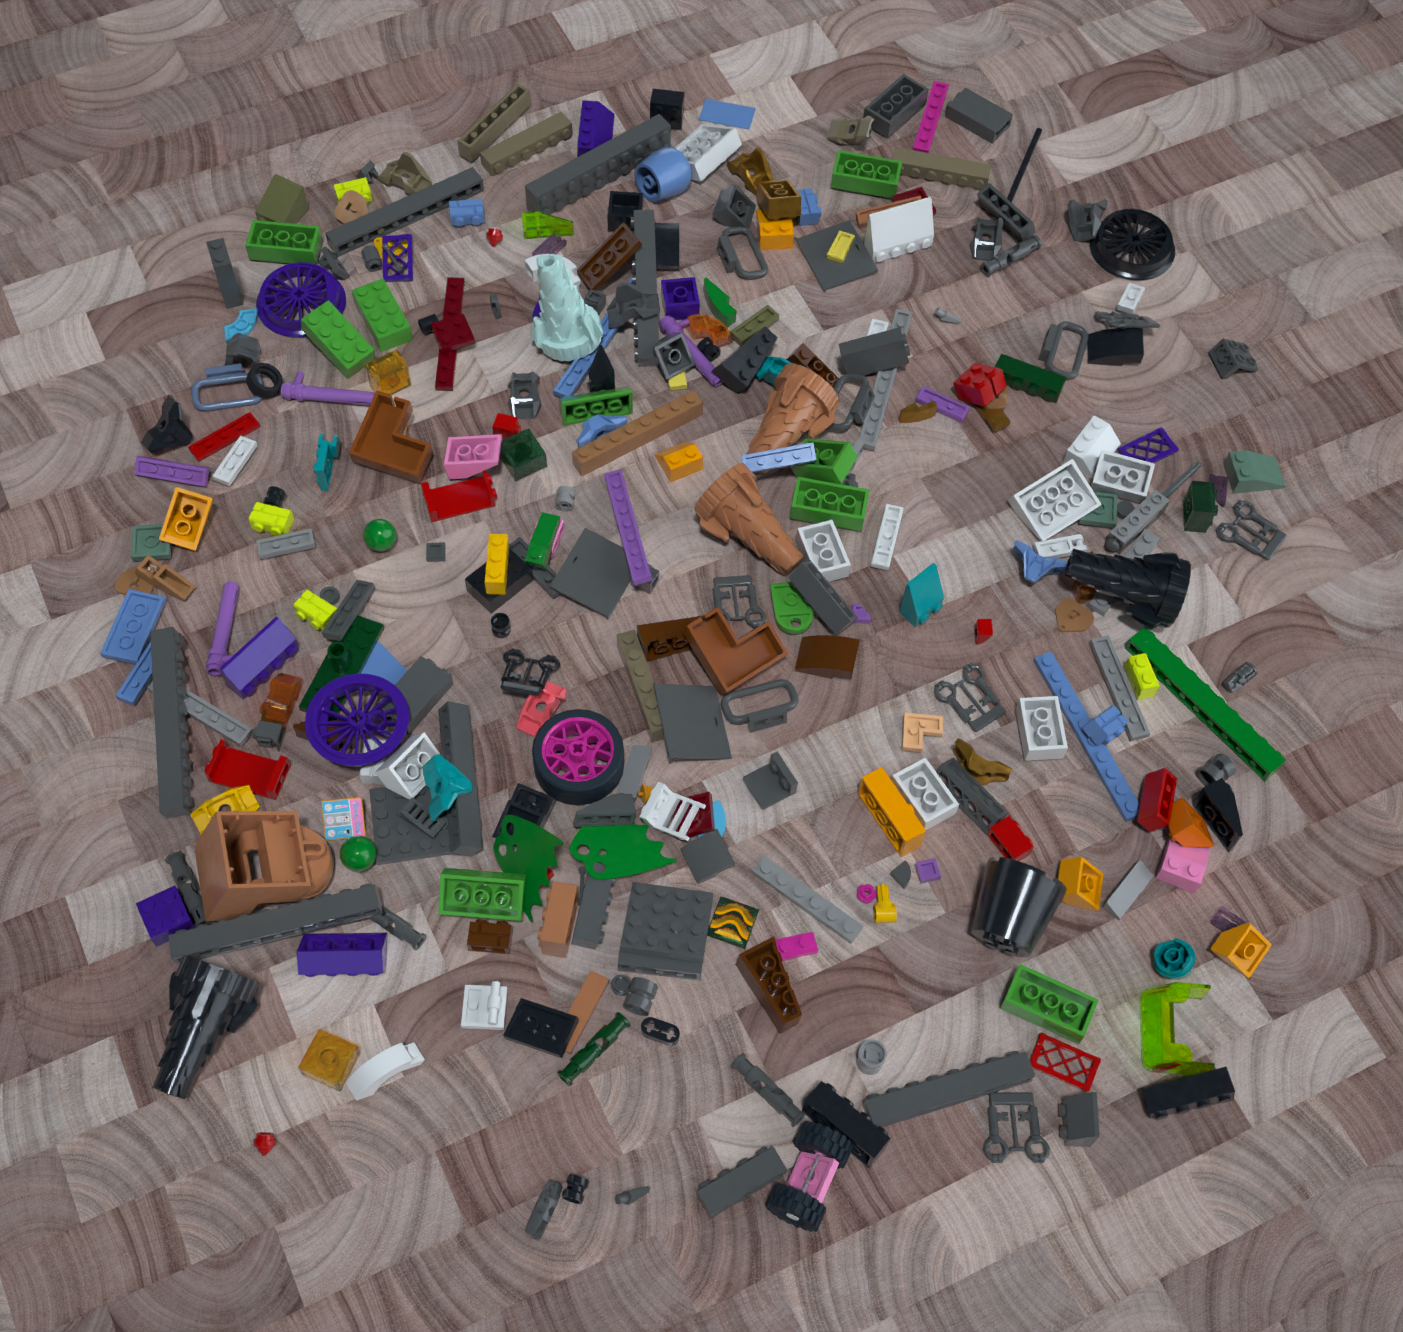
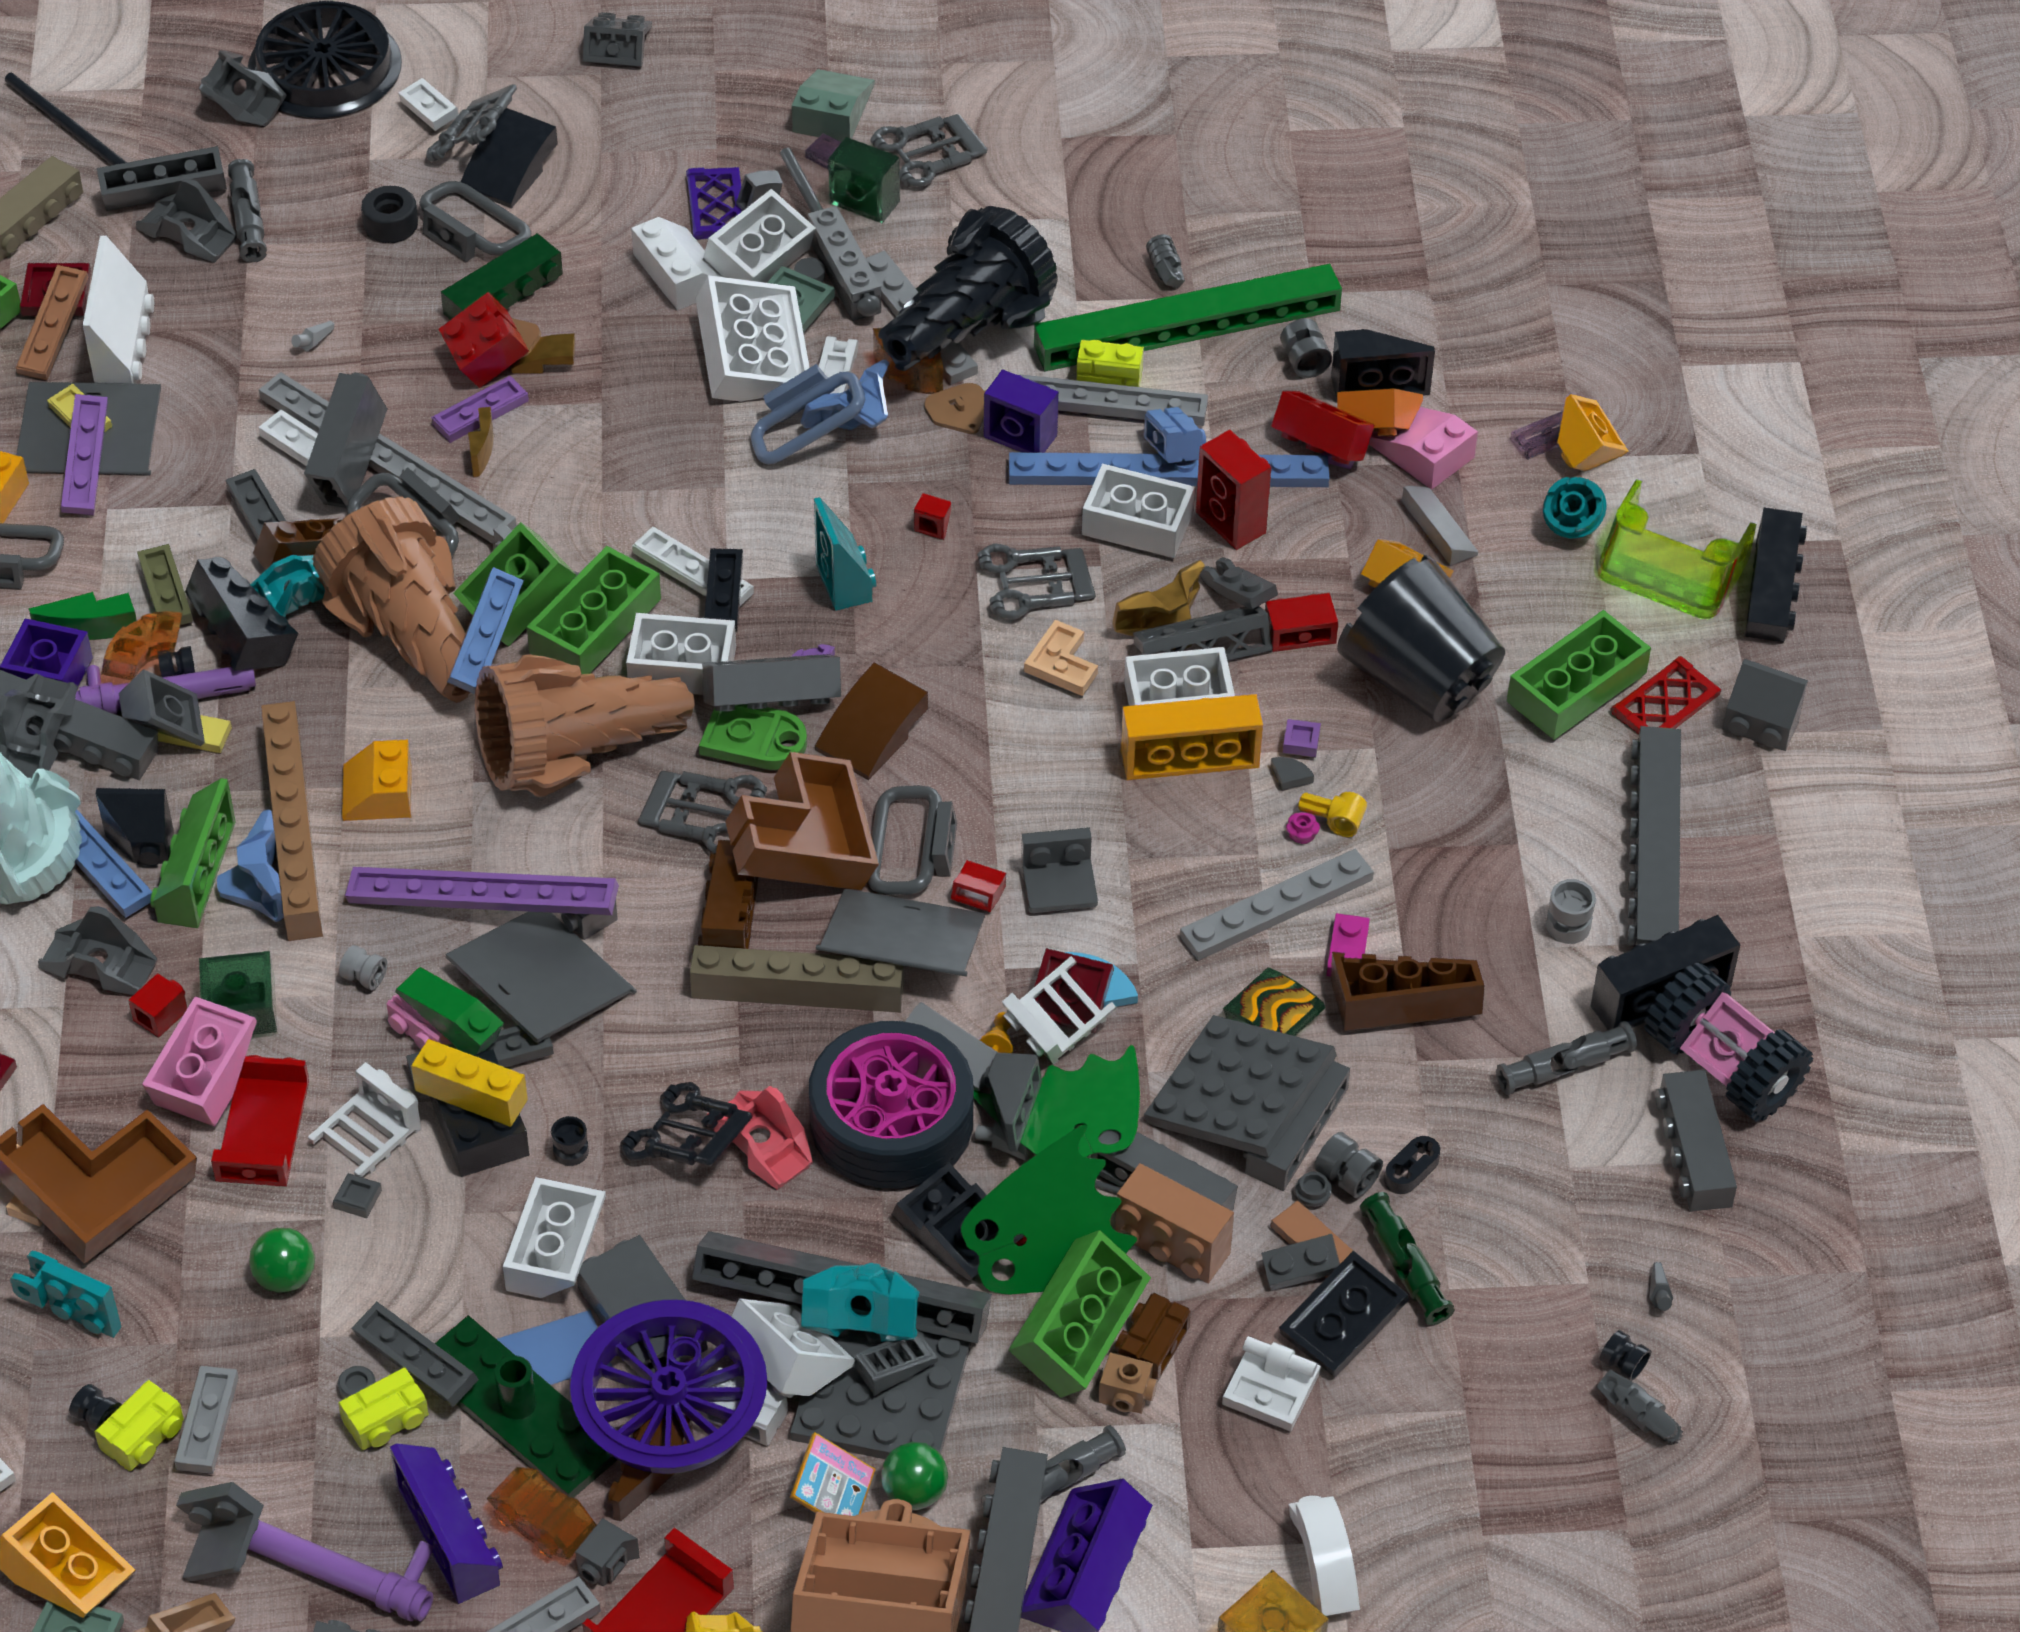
camera: 65 degrees left, 10 degrees down
(224, 576) = (228, 1523): none -> dark grey bracket
(434, 637) = (551, 1238): none -> white slope
(455, 934) = (1127, 1383): none -> medium nougat brick
(482, 547) = (383, 1106): none -> white plate
(568, 994) = (1301, 1262): none -> dark grey plate
(707, 856) = (1147, 1001): dark grey slope -> none
(745, 747) = (978, 886): none -> red piece
(813, 258) = (84, 454): none -> medium lavender plate
(826, 338) = (253, 500): none -> dark grey plate
(874, 553) = (724, 584): none -> black plate
(1012, 1099) = (1697, 778): dark grey piece -> none
(1016, 799) = (1238, 584): none -> dark grey hinge
(1020, 532) = (792, 398): none -> sand blue bar
(1047, 305) = (389, 214): none -> black tyre
(1075, 644) = (1020, 413): none -> dark purple brick
(1077, 768) = (1233, 489): none -> red brick
(1163, 463) = (756, 185): none -> dark grey piece

